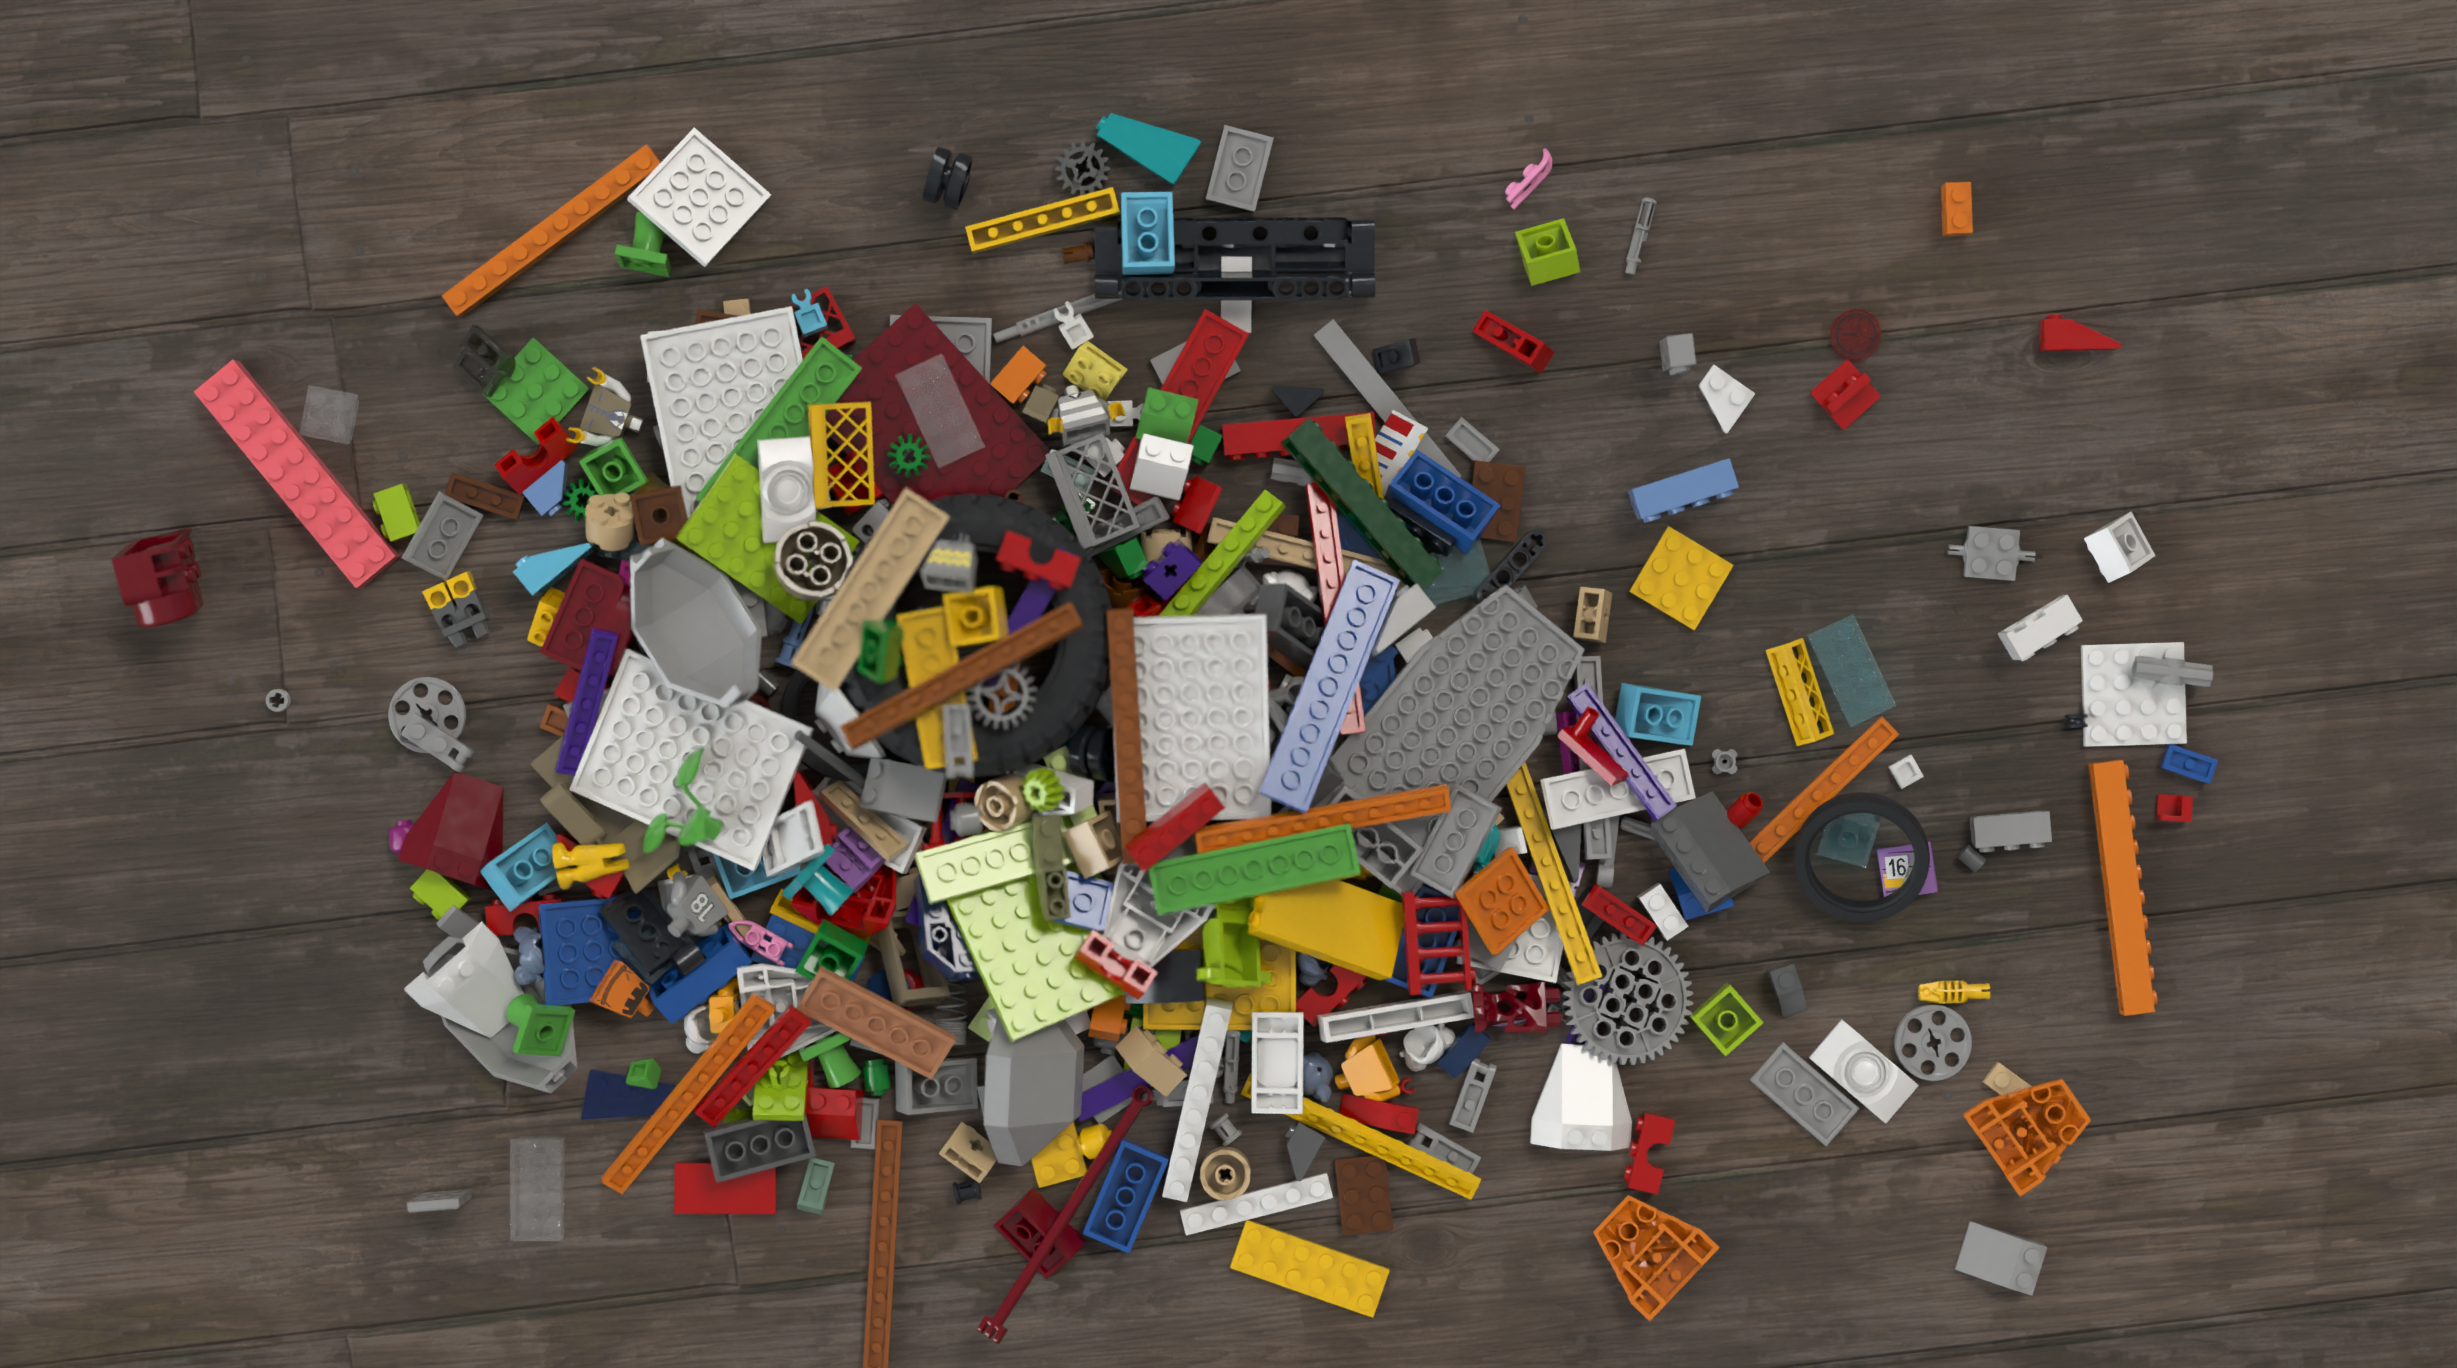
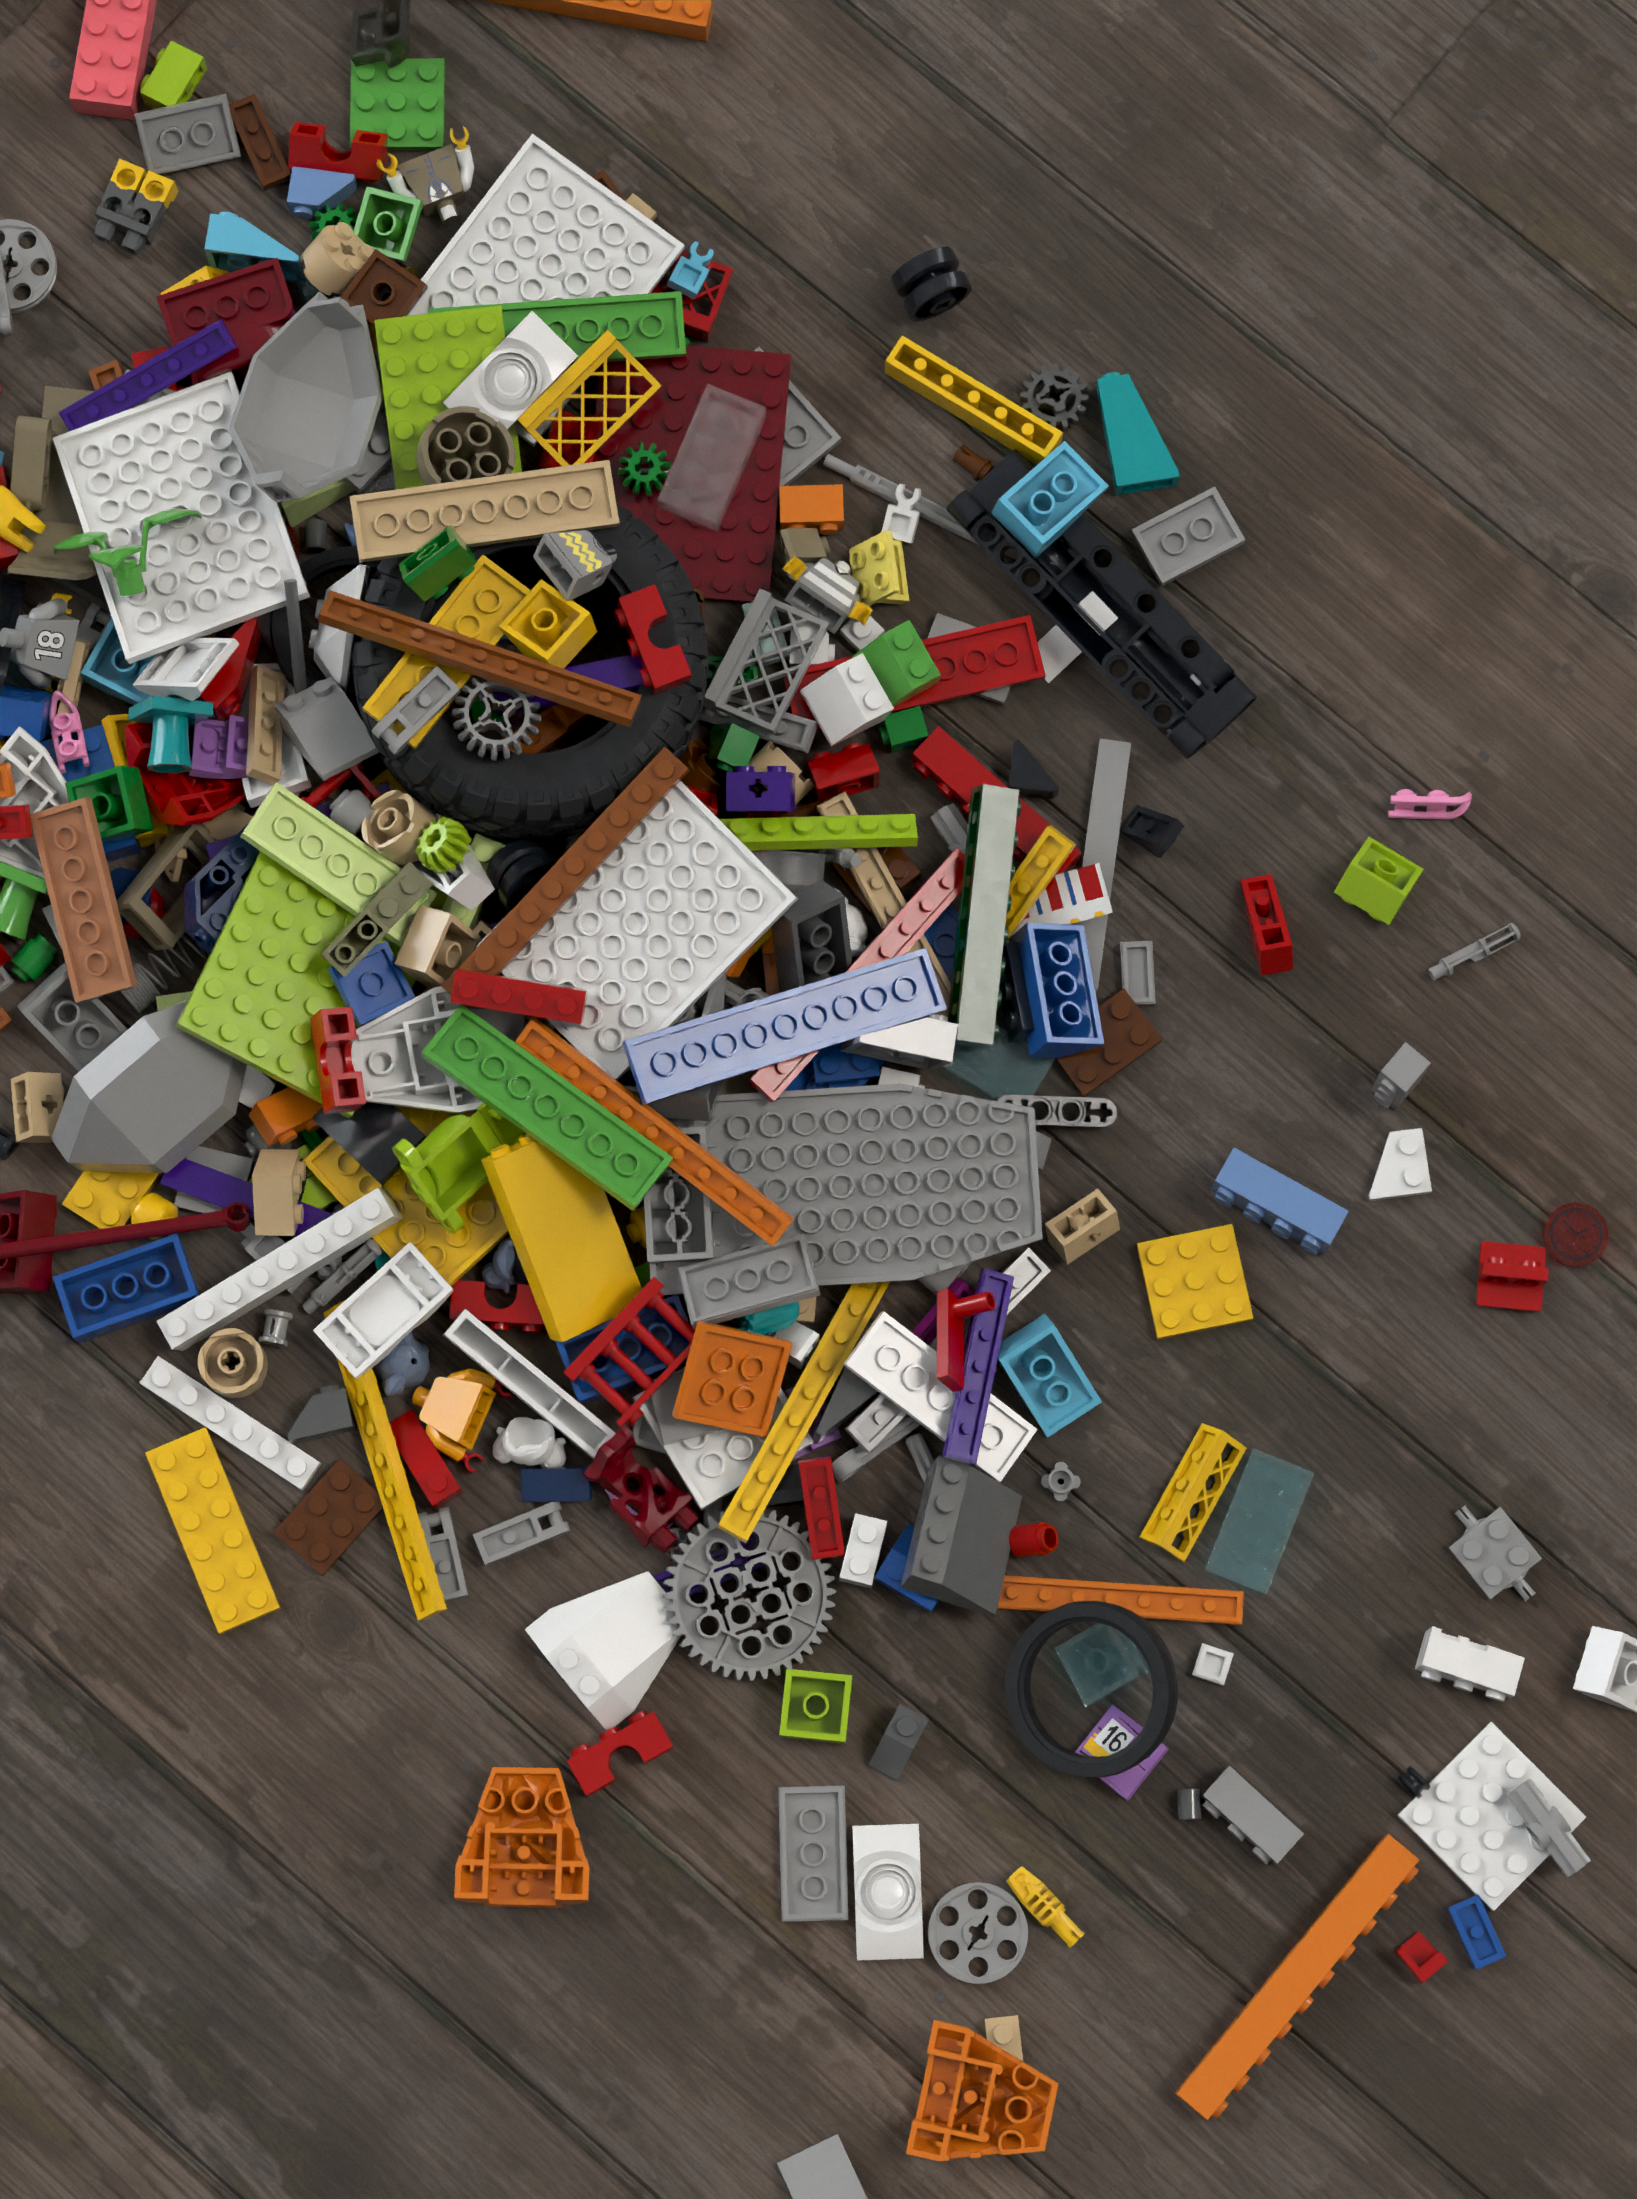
camera: 50 degrees right, 10 degrees down
(645, 251) = (612, 84): bright green plant -> none
(699, 197) = (707, 85): white plate -> none

